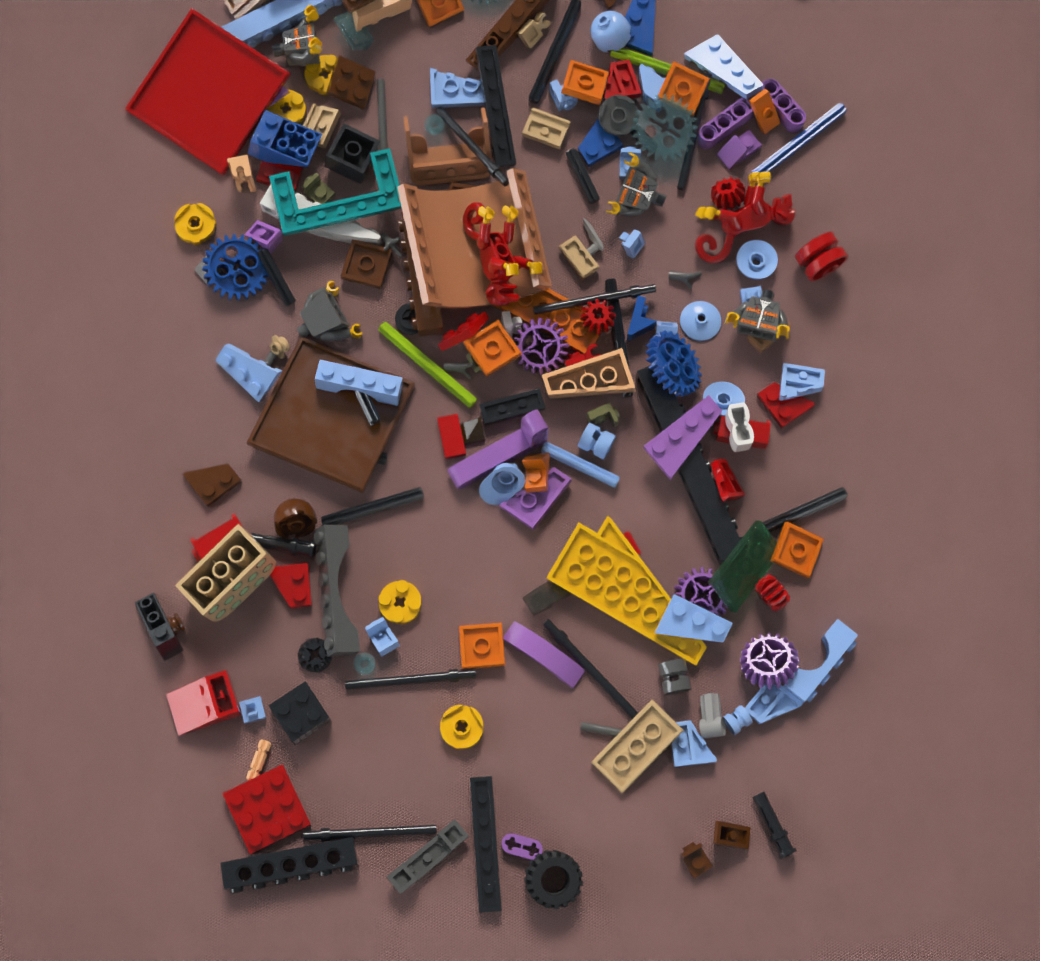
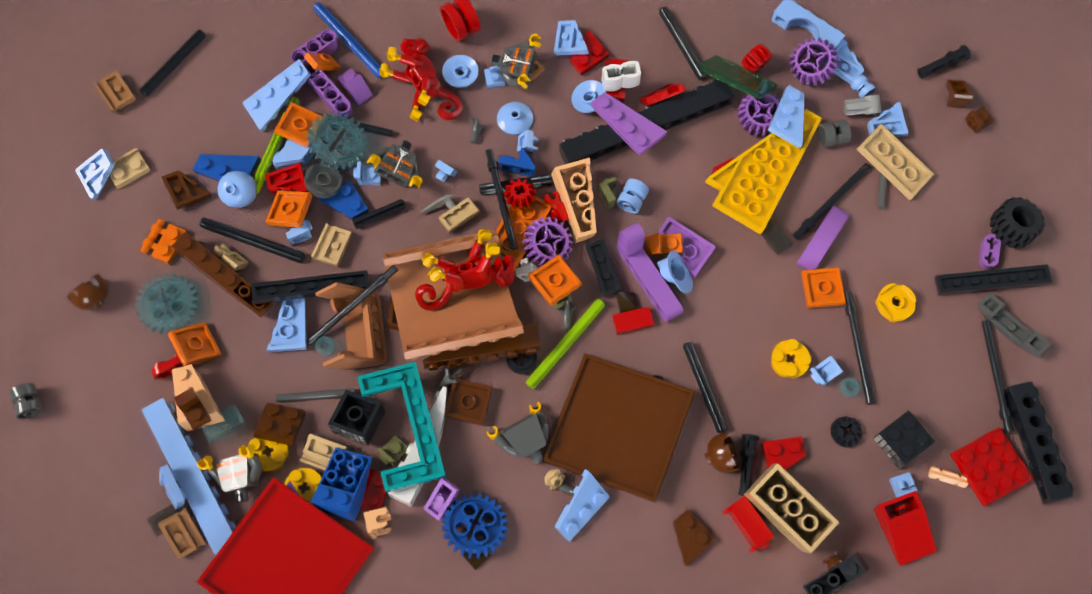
camera: 90 degrees left, 5 degrees down
(195, 212) = (429, 582): yellow plate -> none
(276, 277) = (484, 485): black axle -> none
(338, 377) = (590, 399): light blue arch -> none
(340, 633) = (751, 418): dark grey arch -> none
(368, 408) = (602, 396): black axle -> none
(464, 331) = (539, 305): red plate -> none
(580, 464) = (655, 206): light blue axle -> none
(673, 363) = (562, 131): blue gear -> none
(728, 193) = (399, 91): red gear -> none
(797, 550) = (715, 43): orange plate -> none

